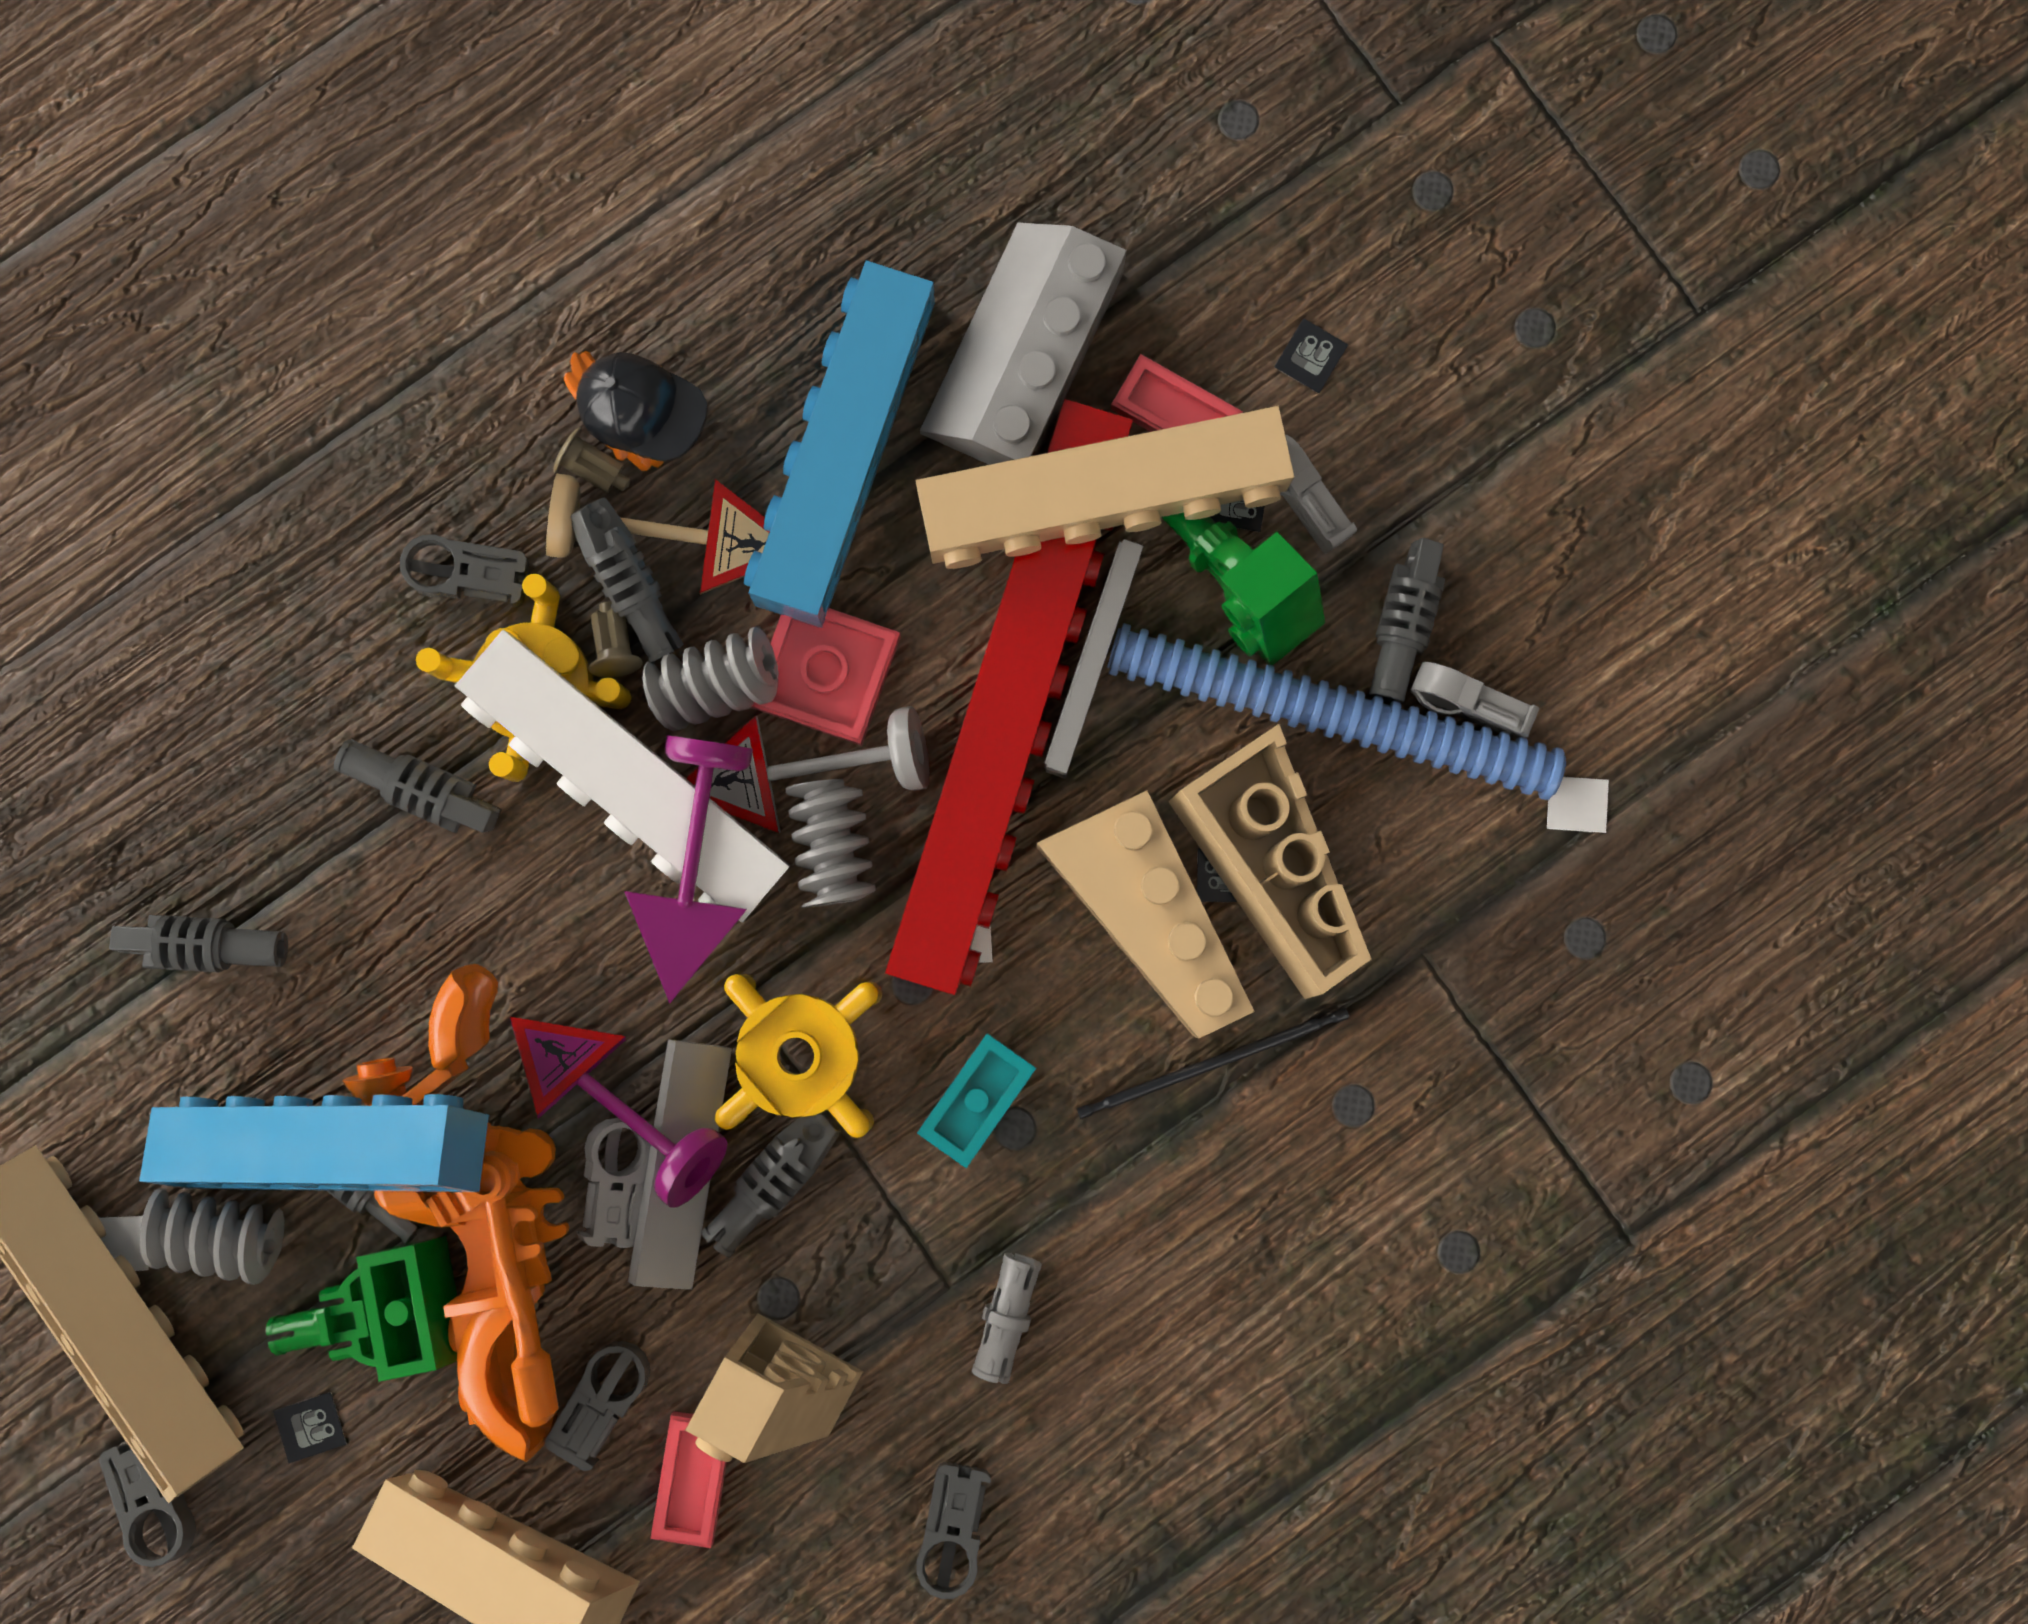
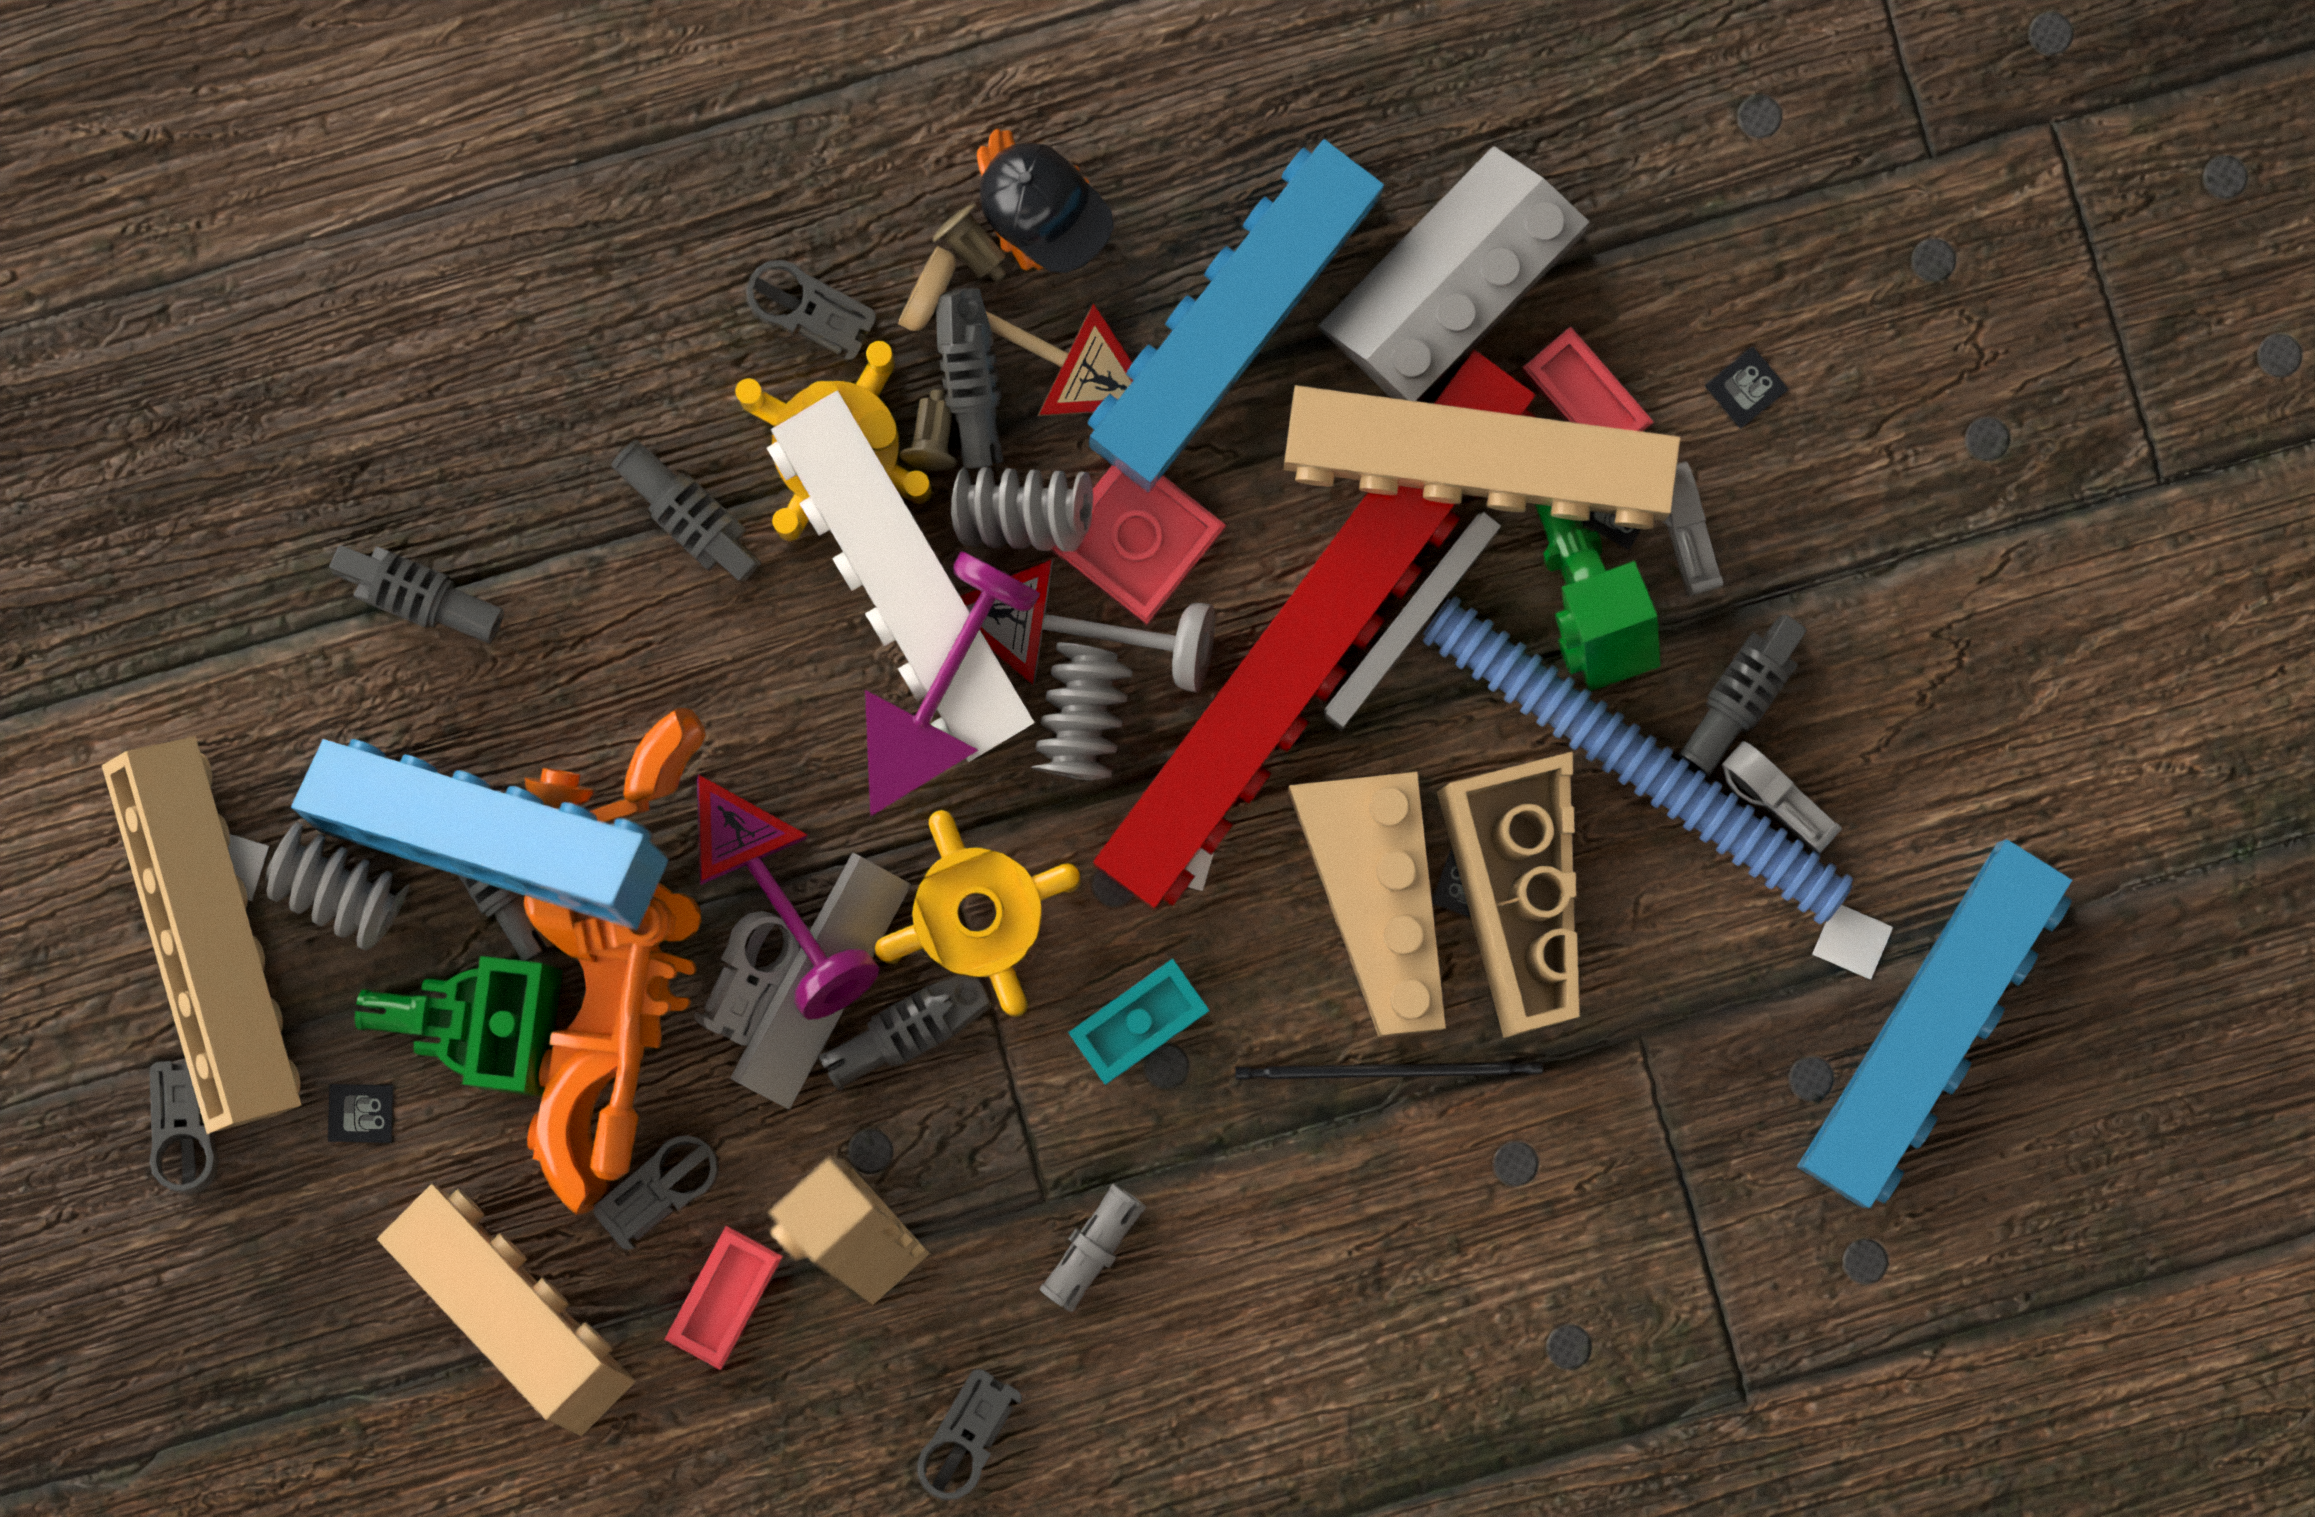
camera: 20 degrees right, 0 degrees up
(1683, 852) = (1935, 1024): none -> dark azure brick

